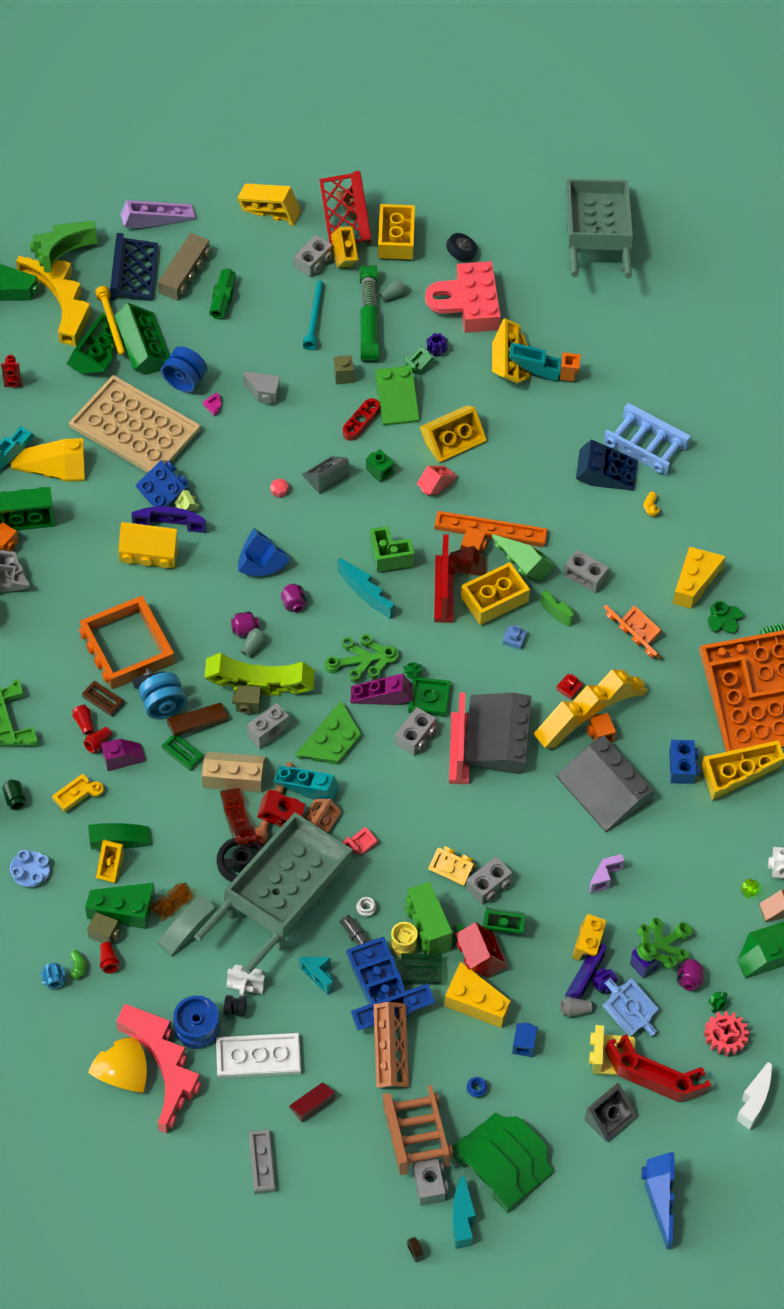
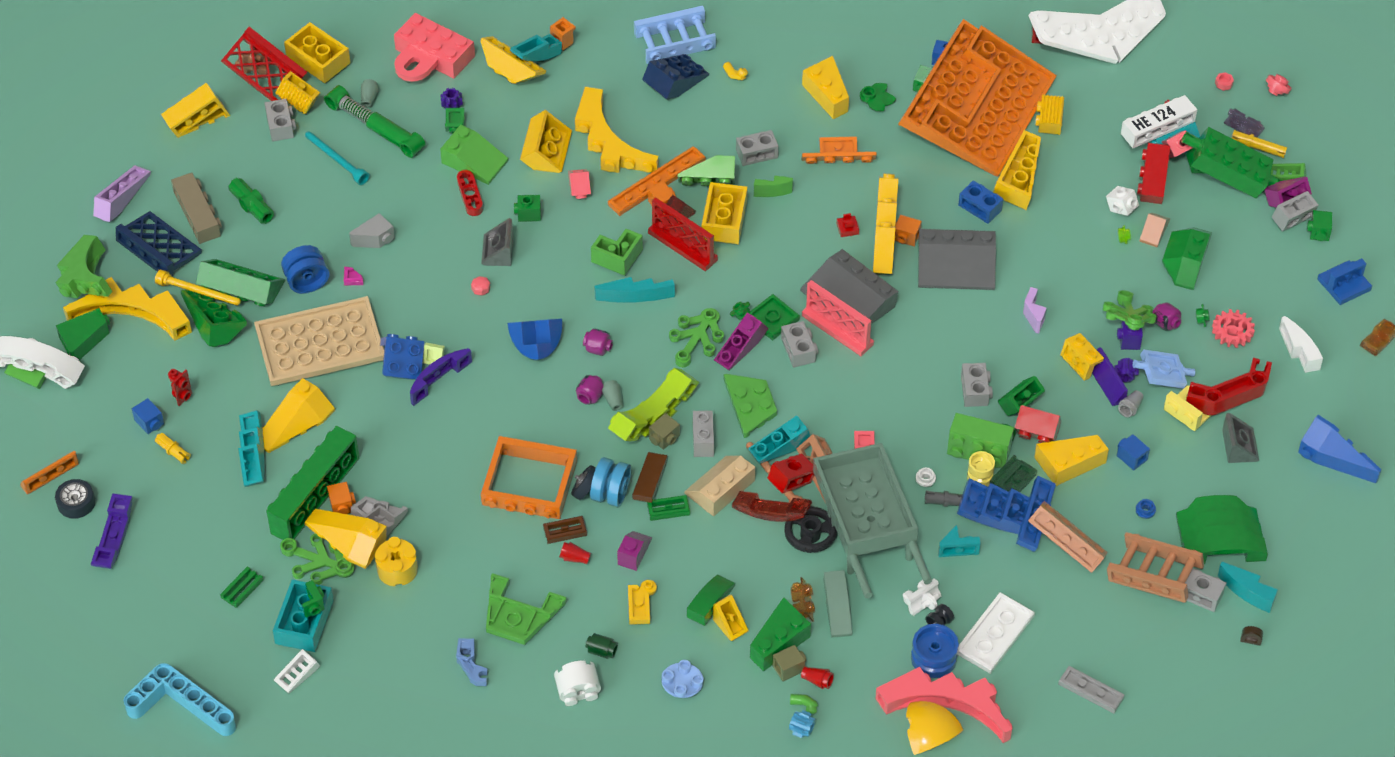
camera: 50 degrees left, 5 degrees down
(93, 741) = (603, 557): red cone -> none
(148, 545) = (453, 402): yellow slope -> none
(312, 1101) = (1067, 621): dark red slope -> none
(343, 369) = (413, 171): olive brick -> none
(452, 866) = (941, 399): yellow bracket -> none
(461, 247) = (375, 24): black wheel -> none
(504, 446) = (601, 139): none -> yellow arch
(514, 637) = (770, 230): medium blue tile -> none

